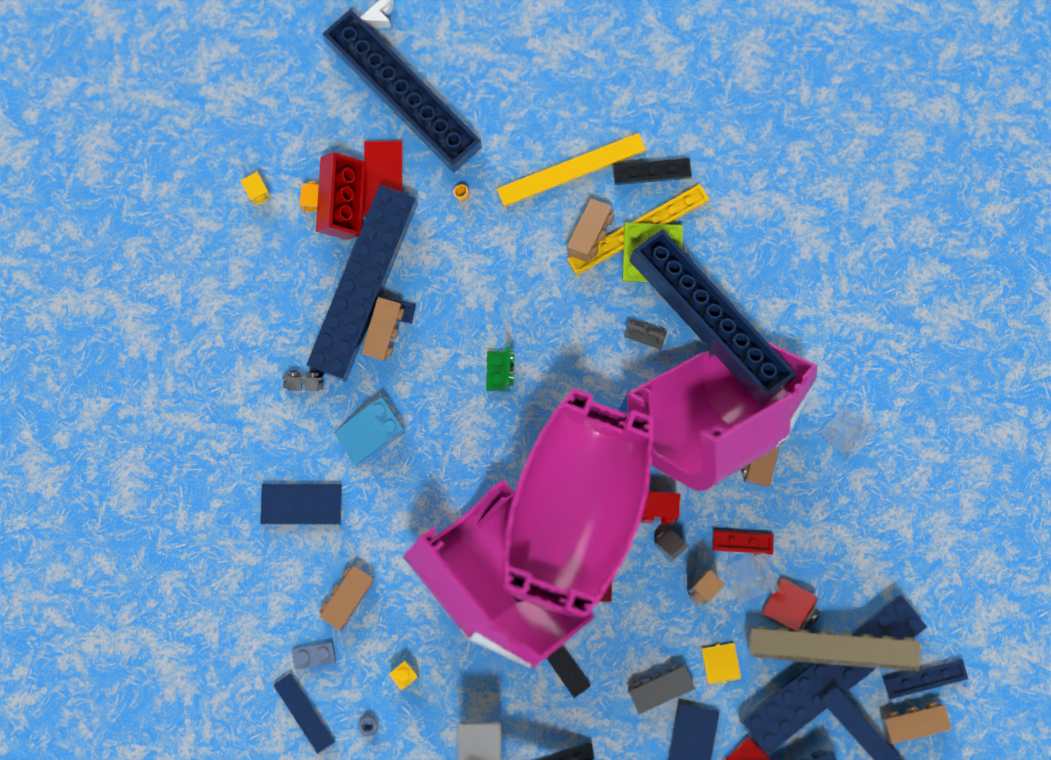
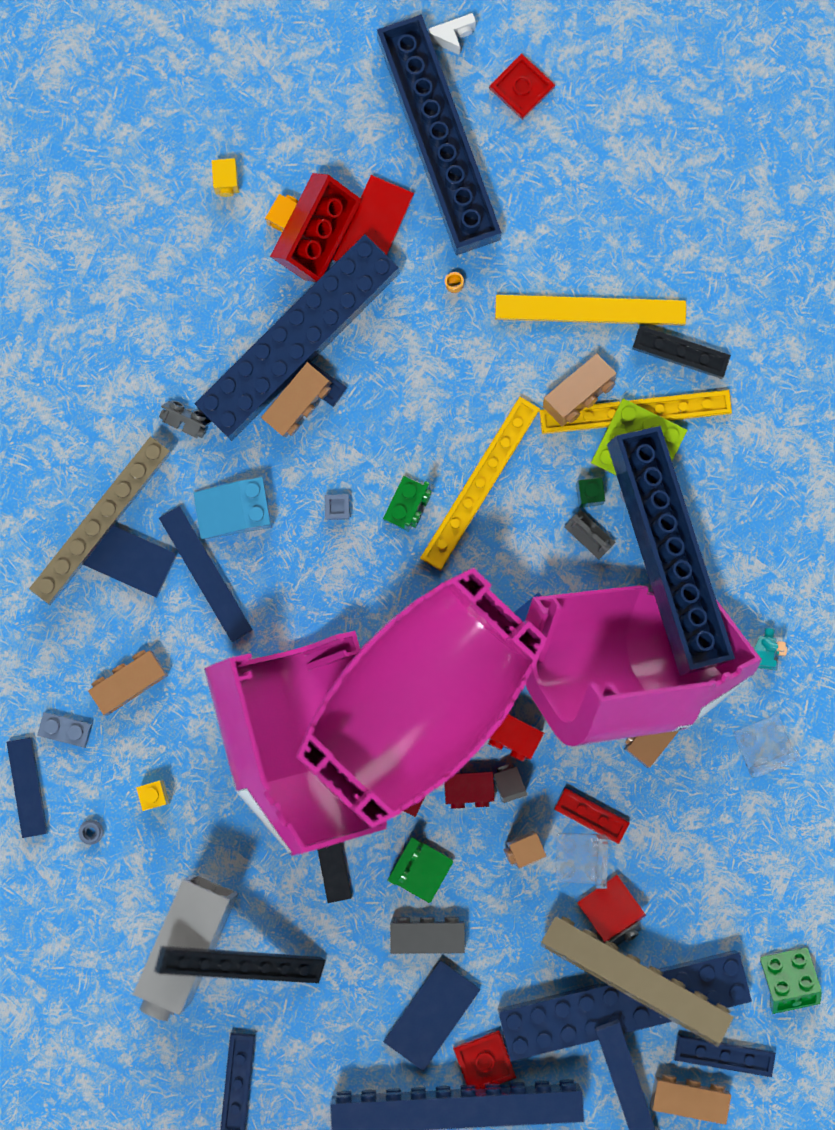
camera: 20 degrees right, 5 degrees up
(272, 485) = (99, 521): none -> dark tan brick
(370, 490) = (205, 574): none -> dark blue tile
(447, 31) = (522, 86): none -> red tile
(447, 396) = (337, 507): none -> sand blue plate
(547, 332) = (480, 483): none -> yellow tile
(632, 302) = (590, 492): none -> dark green brick
(633, 640) = (420, 870): none -> green bracket
(642, 562) = (469, 788): none -> dark red brick
(721, 663) = (506, 937): yellow piece -> none
(819, 358) = (768, 649): none -> teal piece
(949, 599) = (791, 980): none -> bracket

